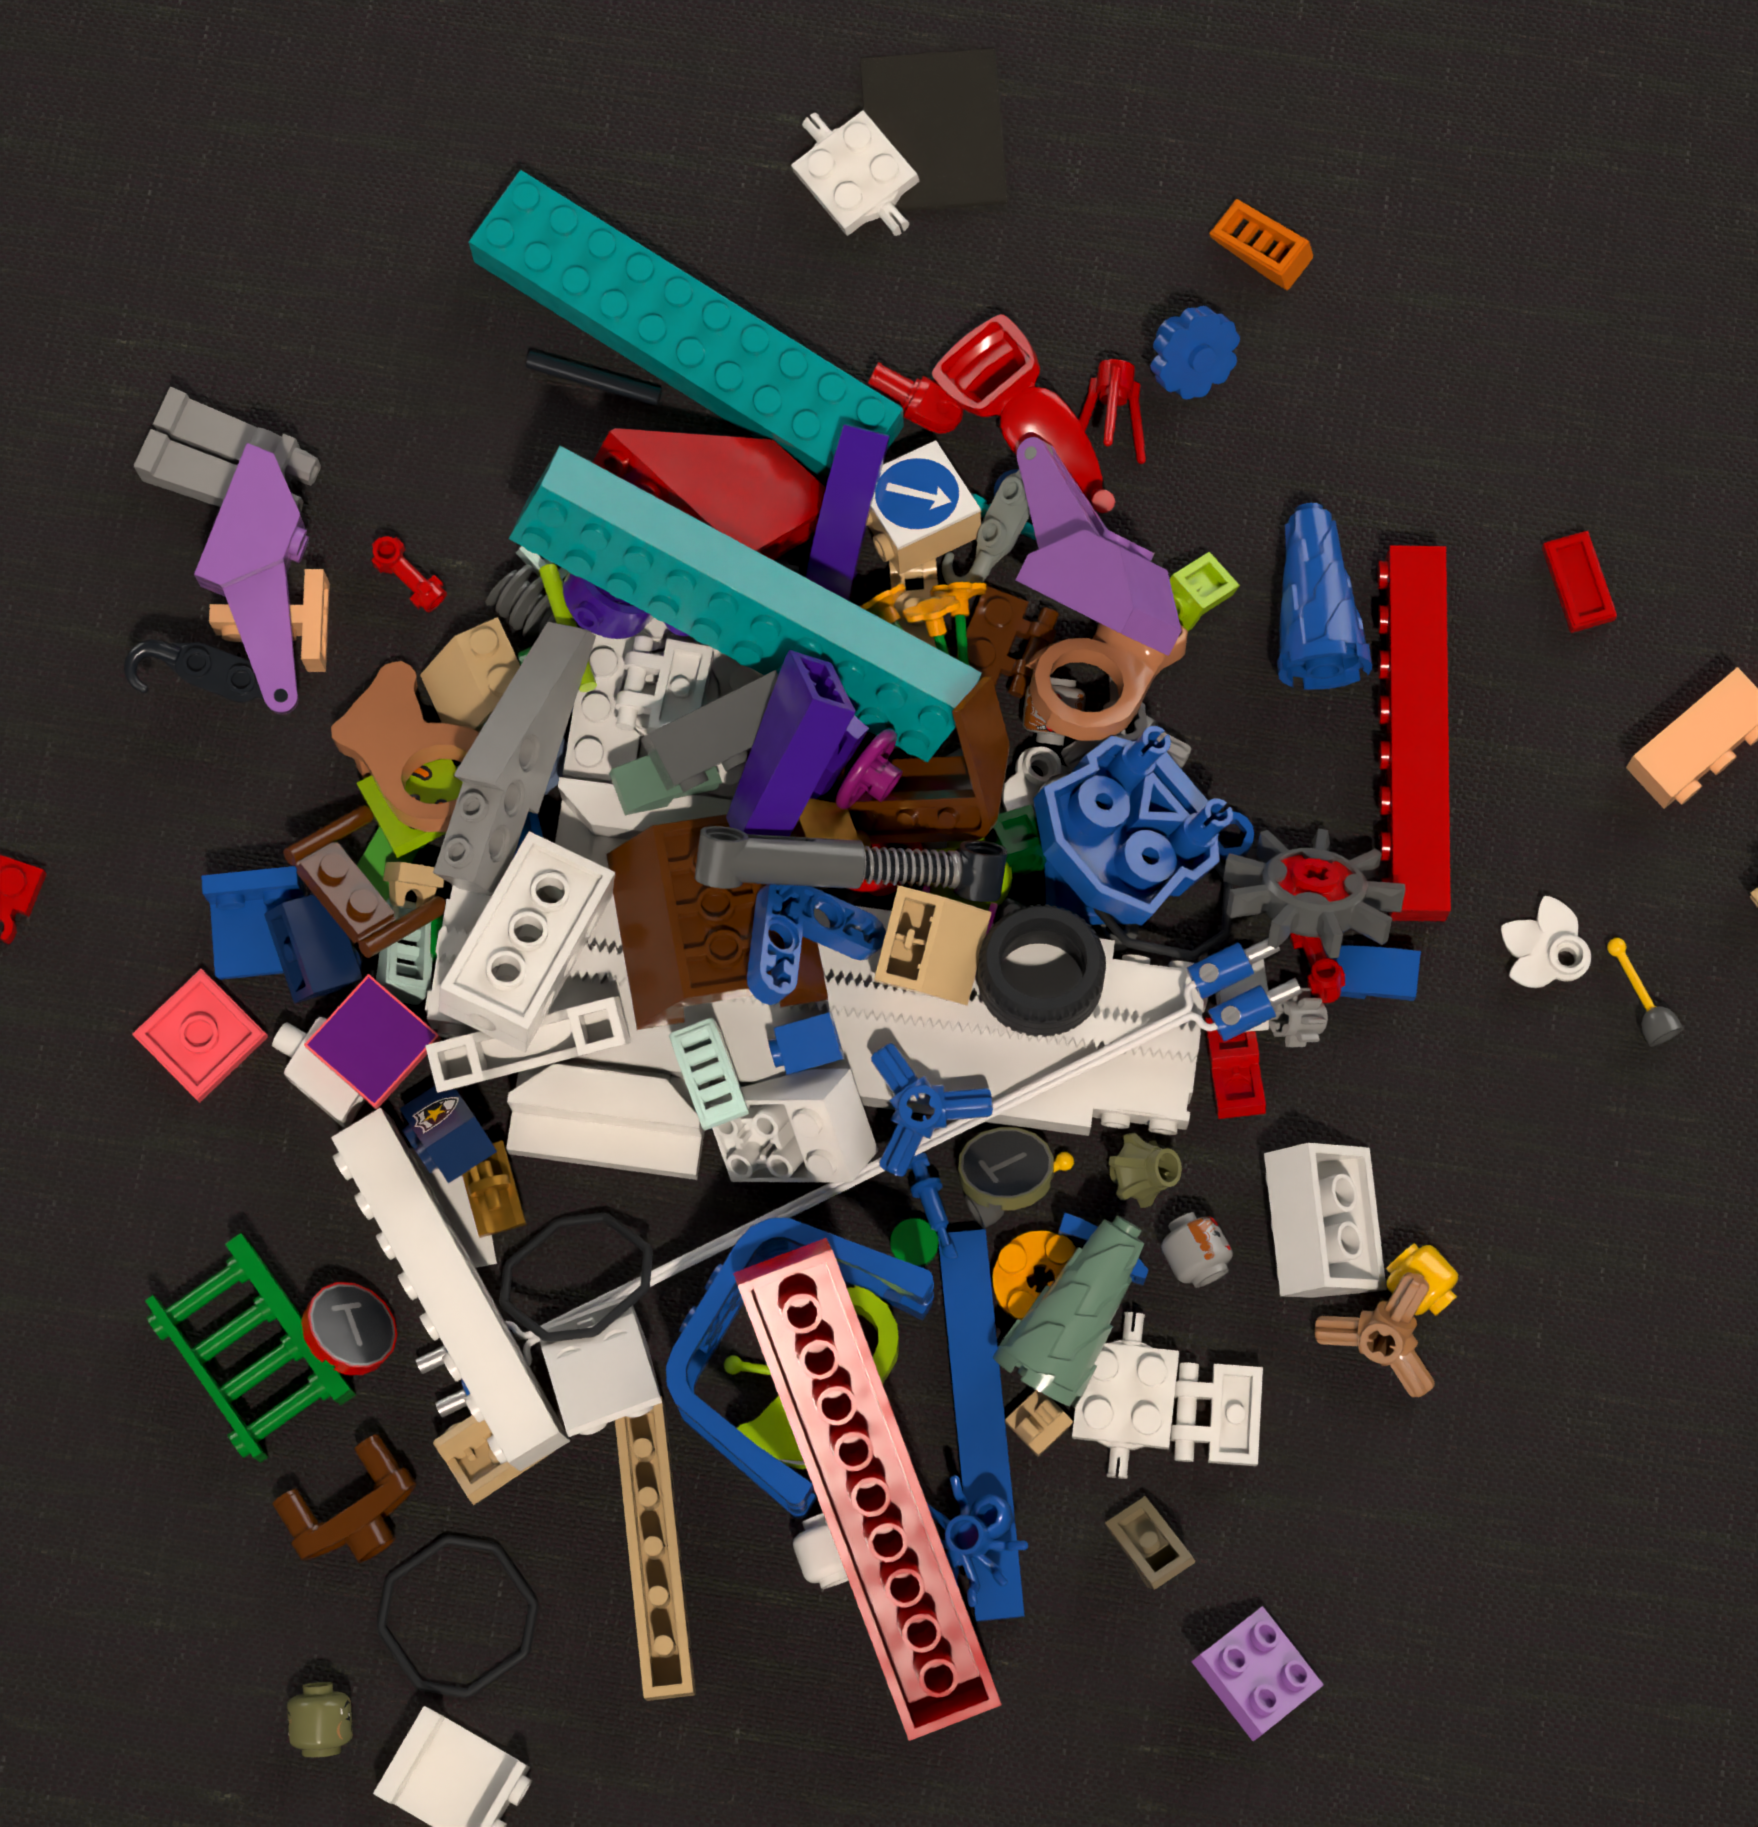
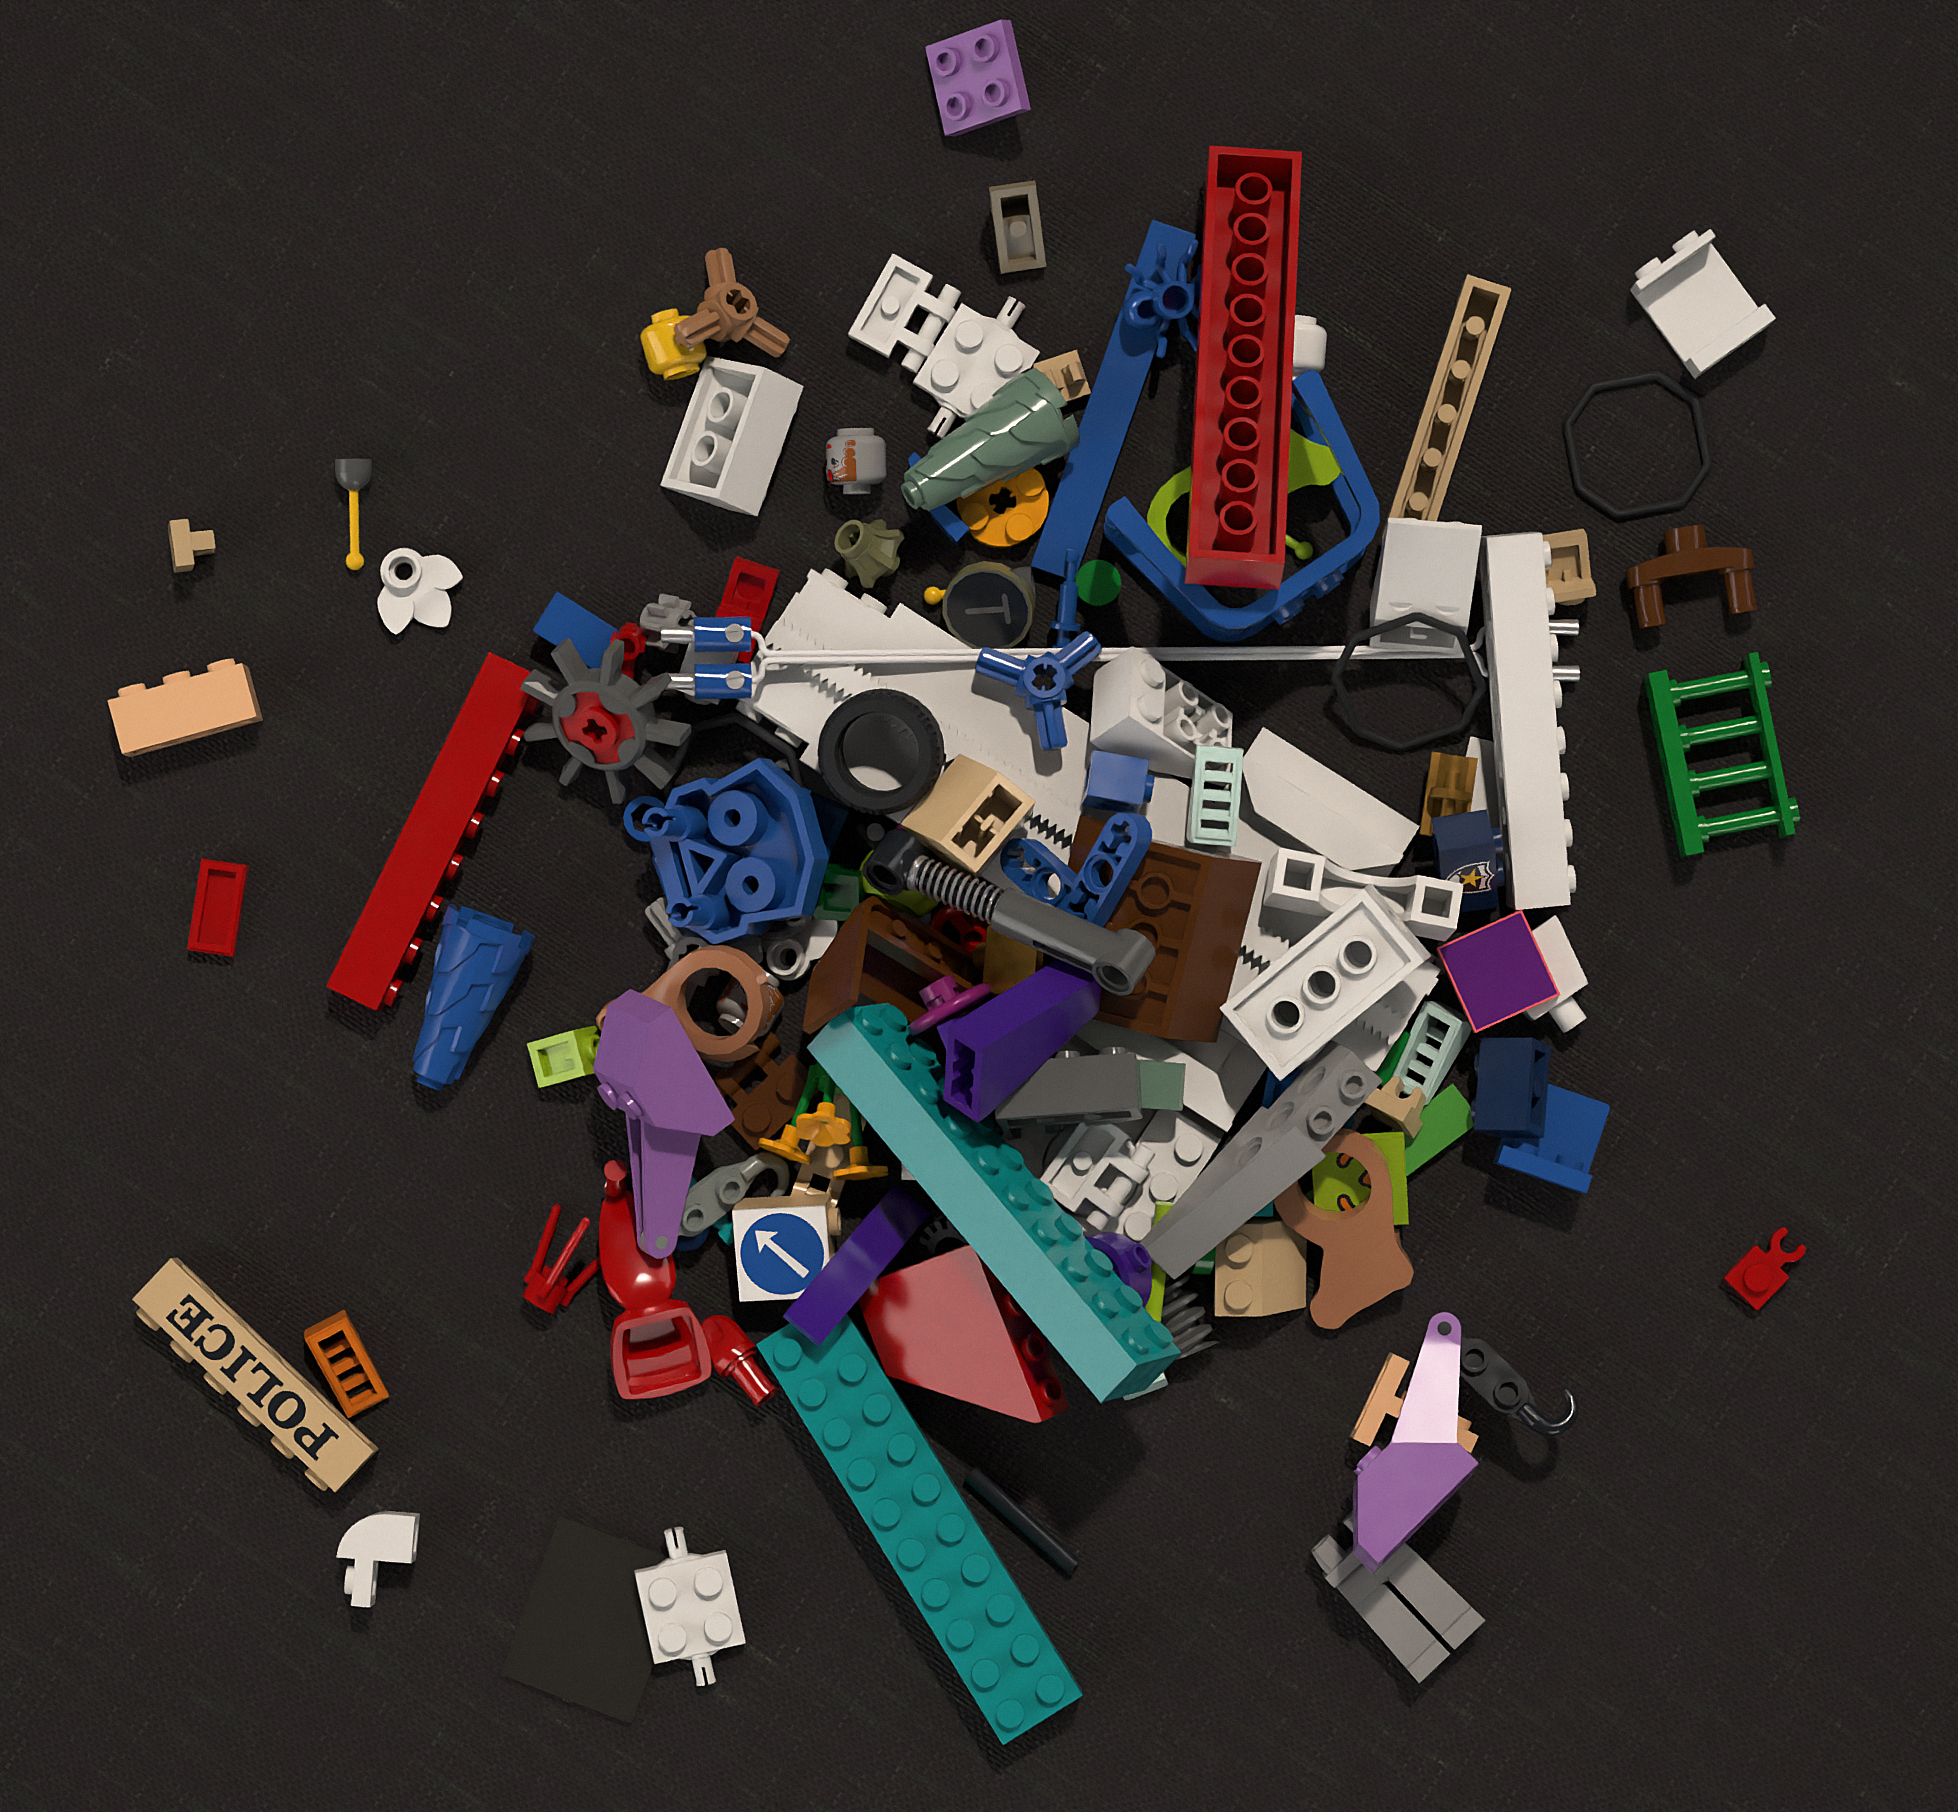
camera: 155 degrees left, 10 degrees up
(200, 1035) = (1645, 1061): coral tile -> none
(319, 1720) = (1794, 405): olive head -> none
(348, 892) = (1461, 1116): reddish brown plate -> none
(349, 1328) = (1625, 729): black tile -> none
(390, 559) = (1284, 1430): red bar -> none
(1159, 105) = (376, 1538): none -> white brick
(1194, 352) = (463, 1281): blue plant -> none
(1337, 194) = (254, 1374): none -> tan brick

